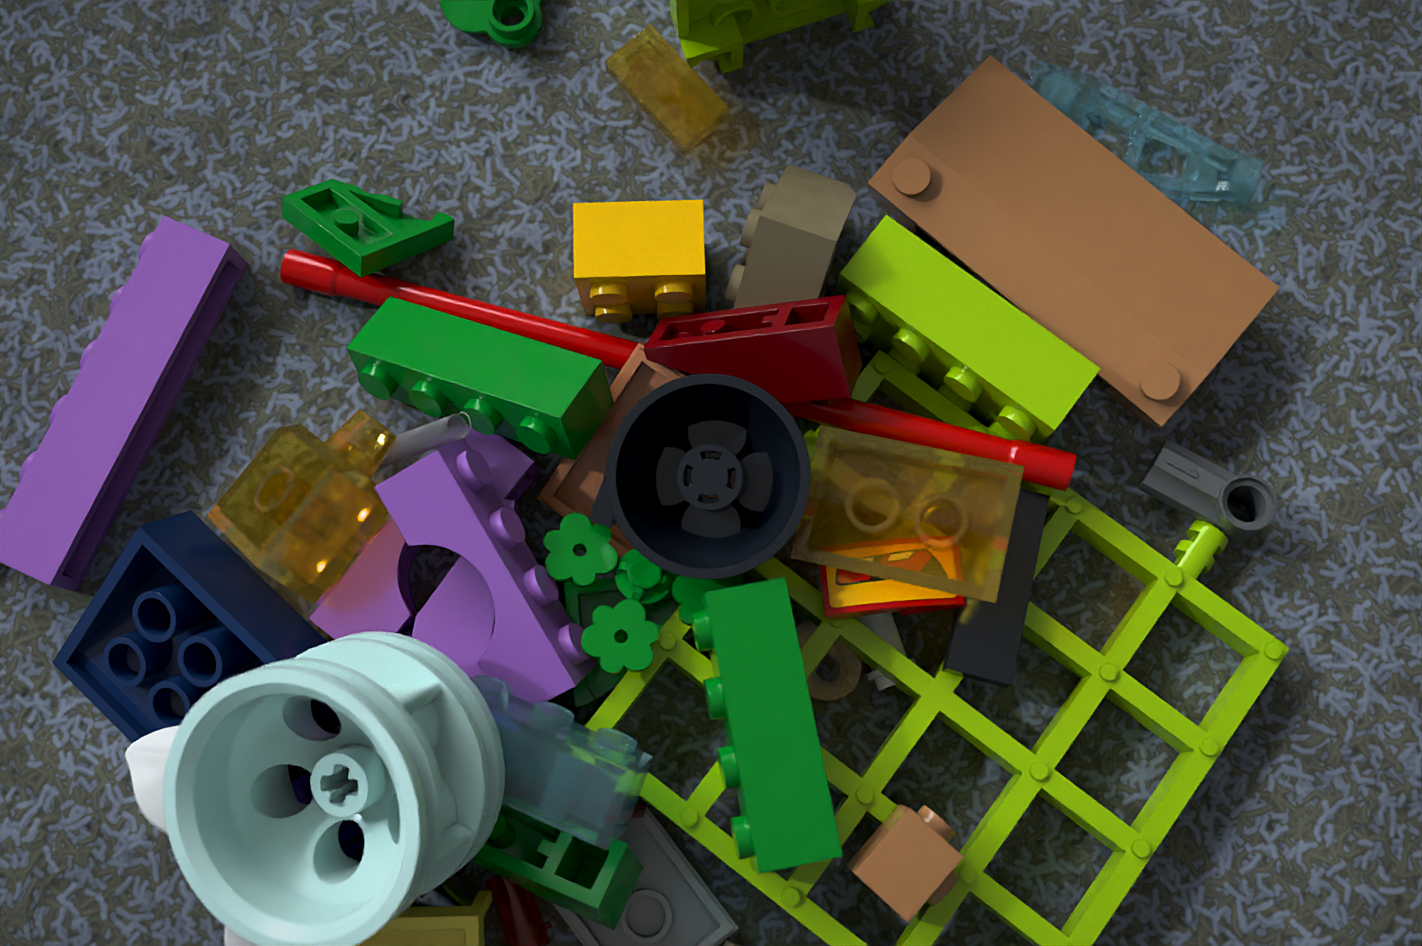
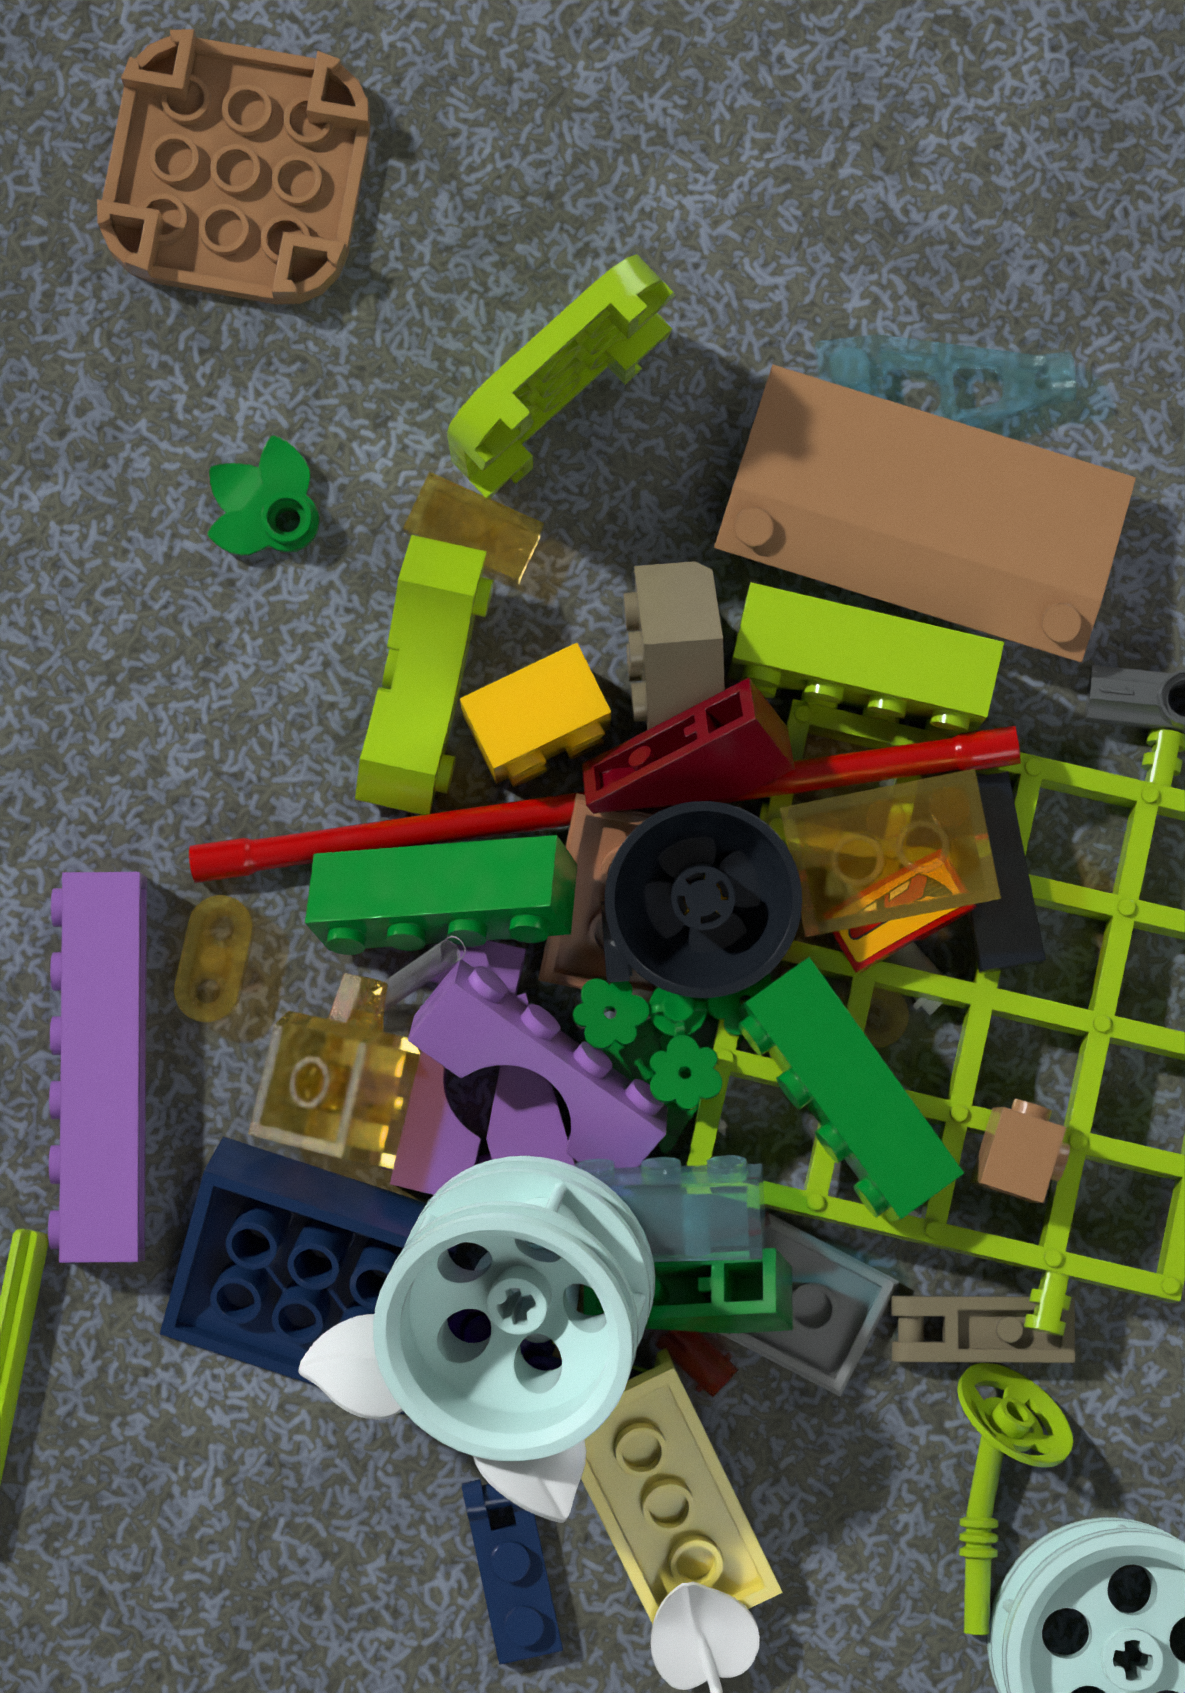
camera: 30 degrees left, 5 degrees up
(259, 351) = (212, 959): none -> clear yellow plate
(362, 227) = (248, 795): green wing -> none
(589, 150) = (422, 678): none -> lime brick

